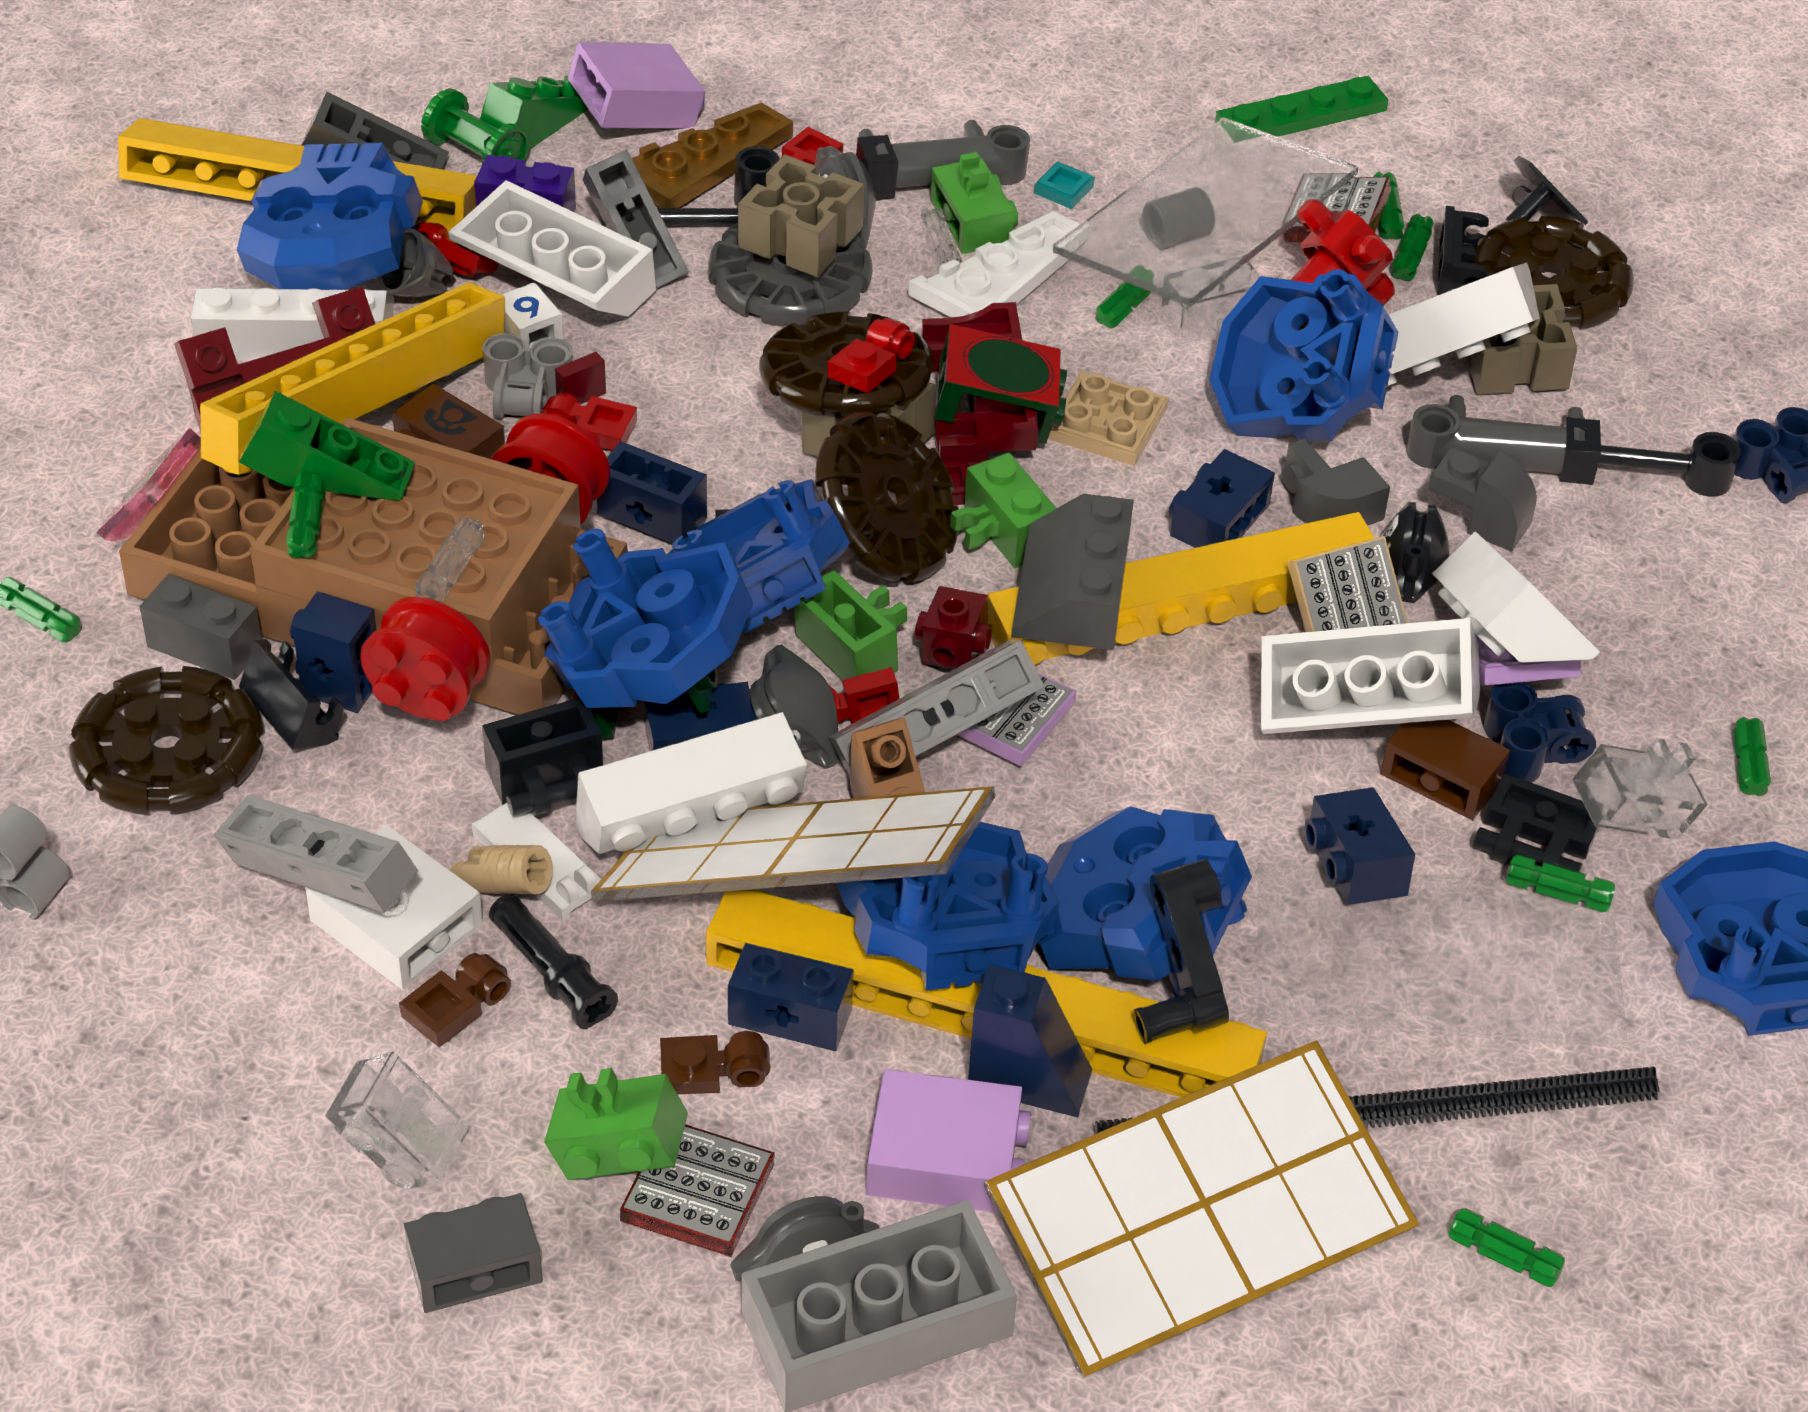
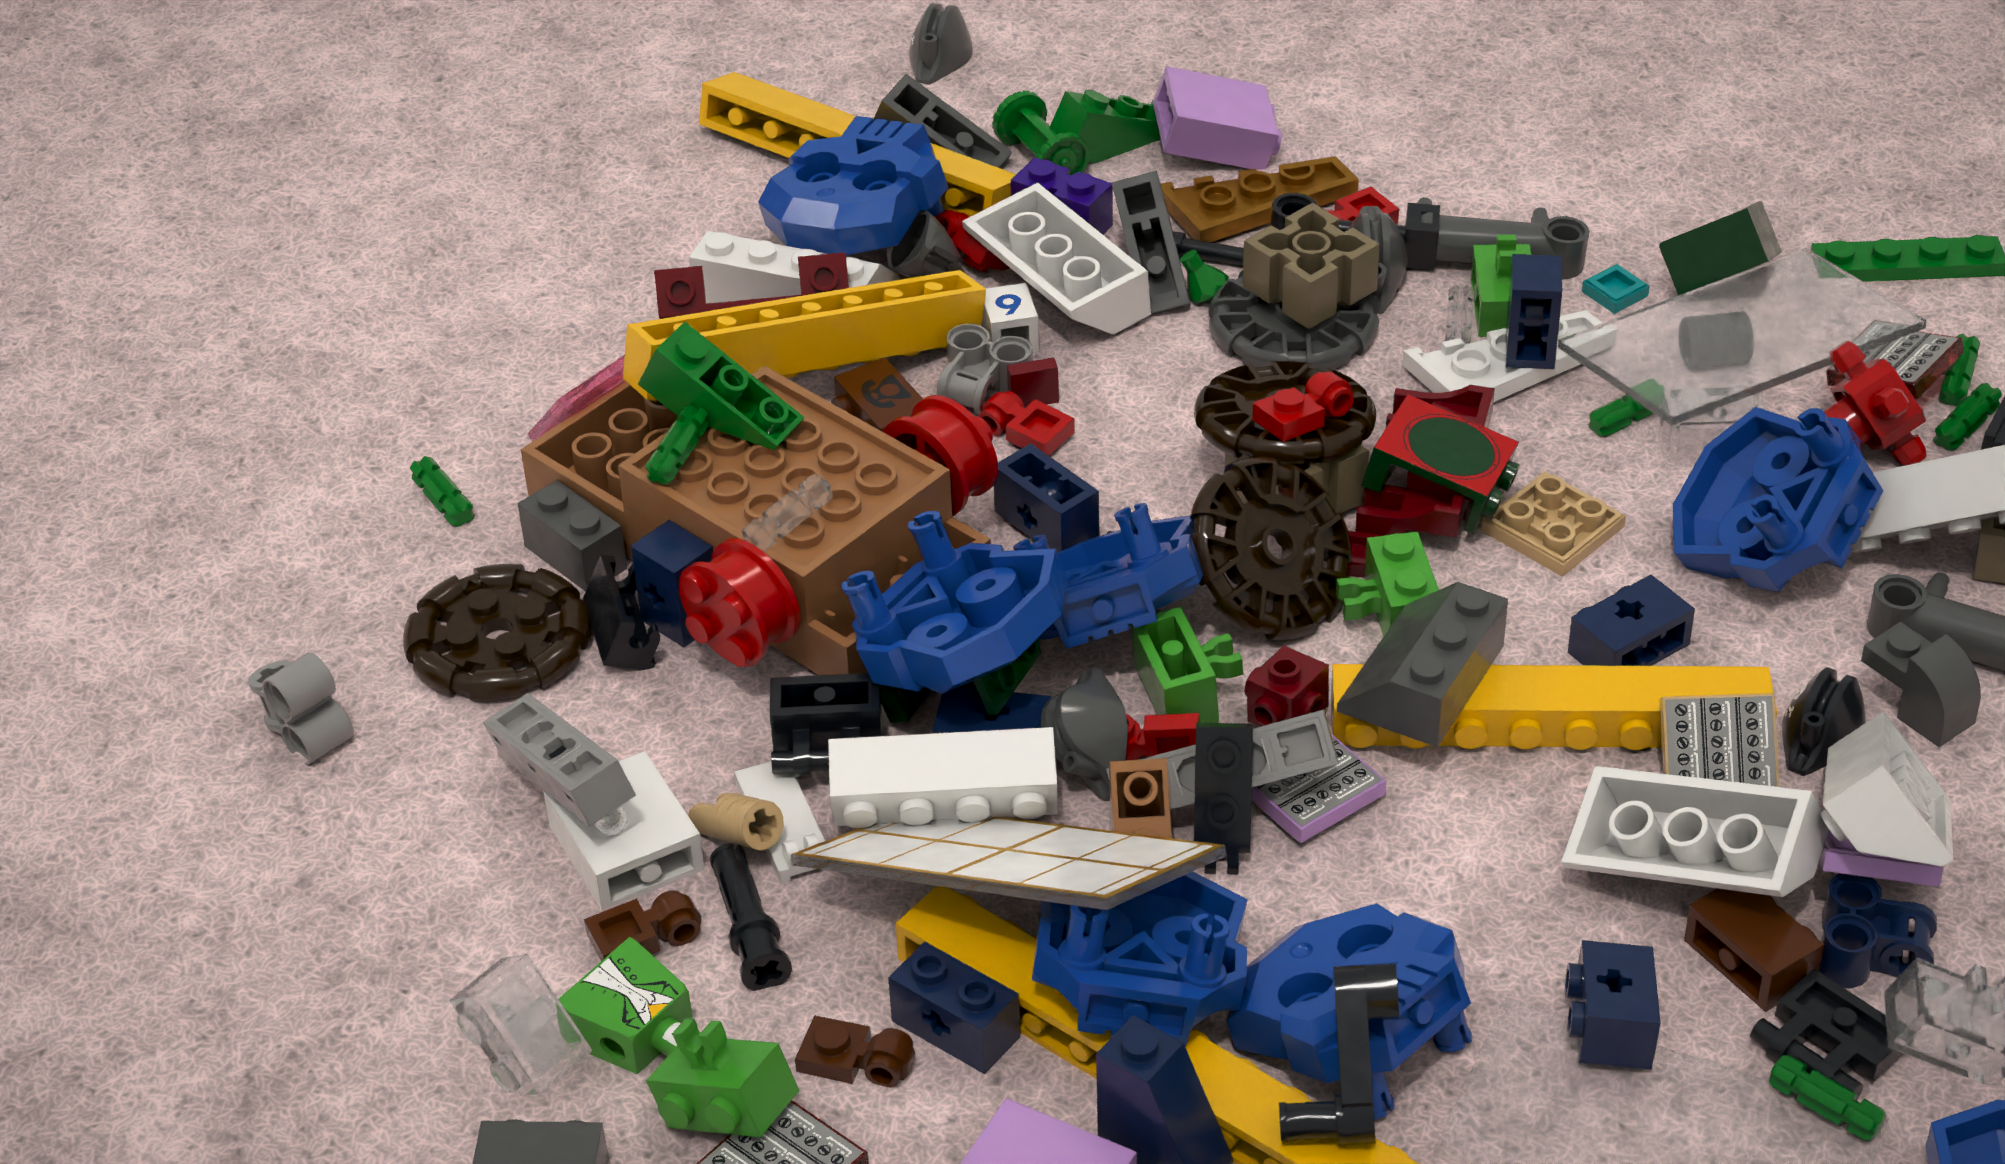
camera: 25 degrees right, 5 degrees down
(325, 54) = (939, 43): none -> dark grey hat
(491, 1075) = (628, 1007): none -> bright green torso
(693, 246) = (1202, 278): none -> green rock
(949, 730) = (1223, 789): none -> black hinge
(1024, 222) = (1533, 311): none -> dark blue brick
(1151, 134) = (1720, 248): none -> dark green panel
(1333, 491) = (1764, 641): dark grey brick -> none

